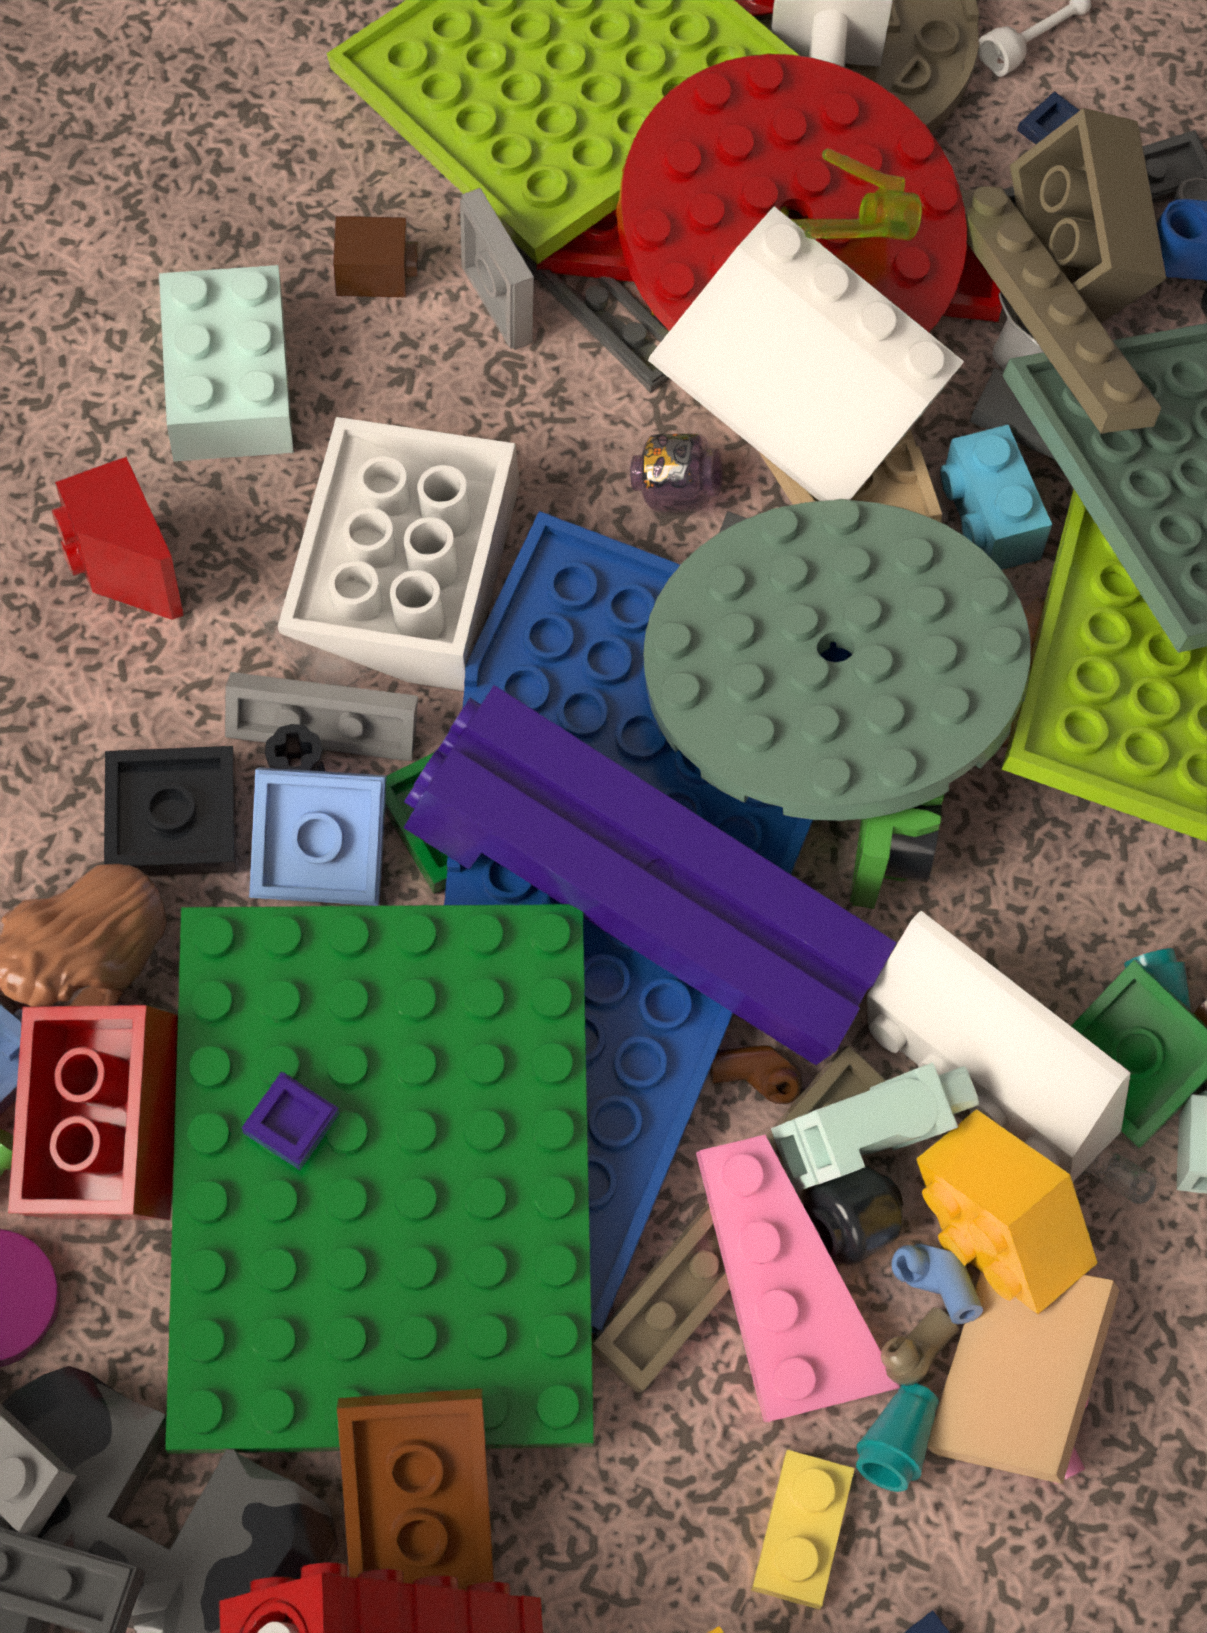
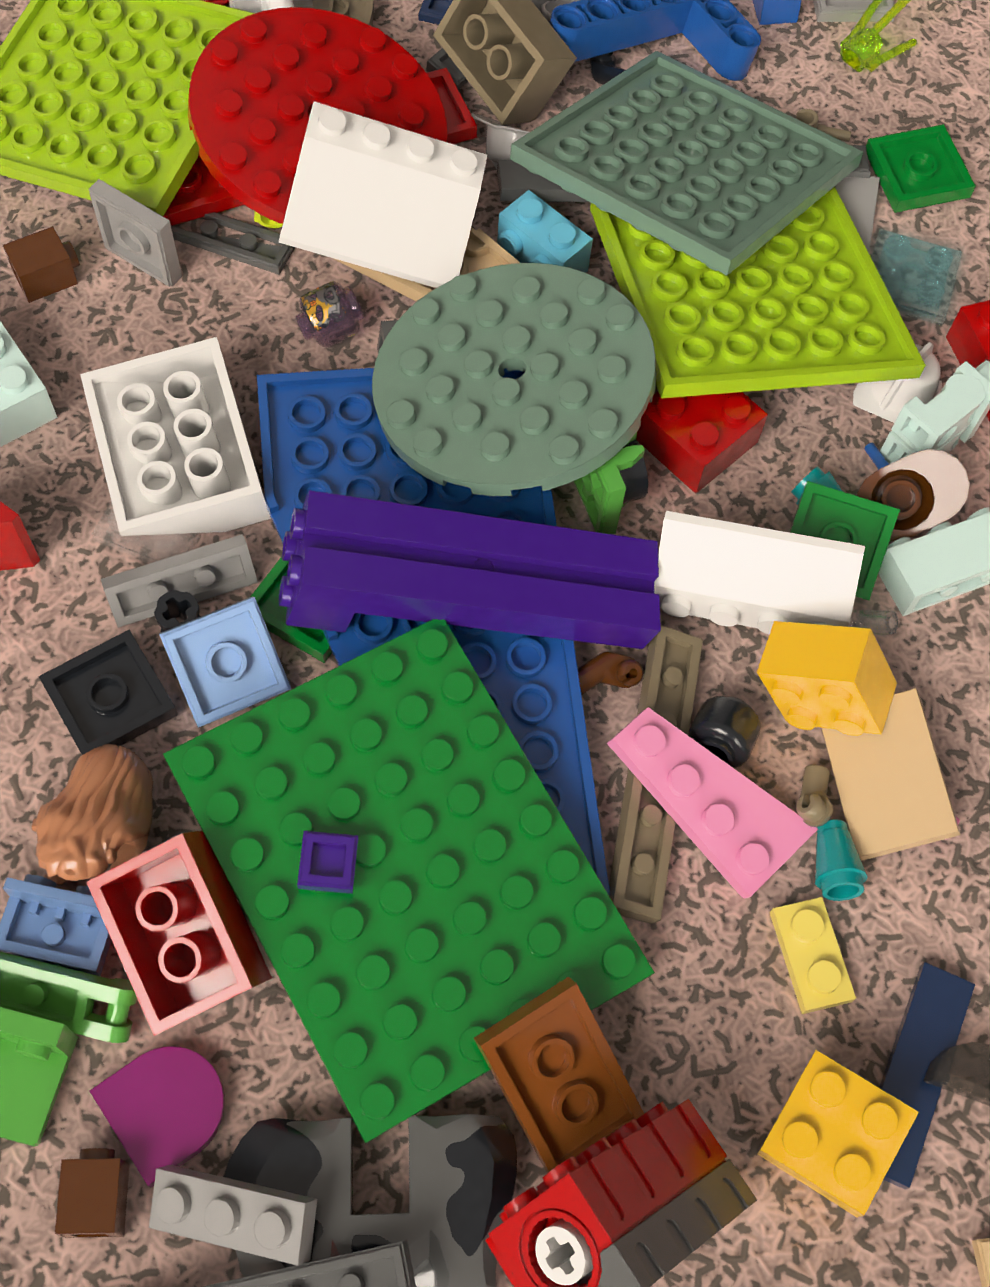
camera: 30 degrees left, 0 degrees up
(882, 214) = (381, 84): clear neon green plant -> none
(888, 1115) = (698, 680): light aqua hips -> none
(939, 1273) = (800, 741): medium blue arm -> none
(1047, 839) = (700, 433): none -> red brick
(1056, 314) = (524, 107): dark tan plate -> none

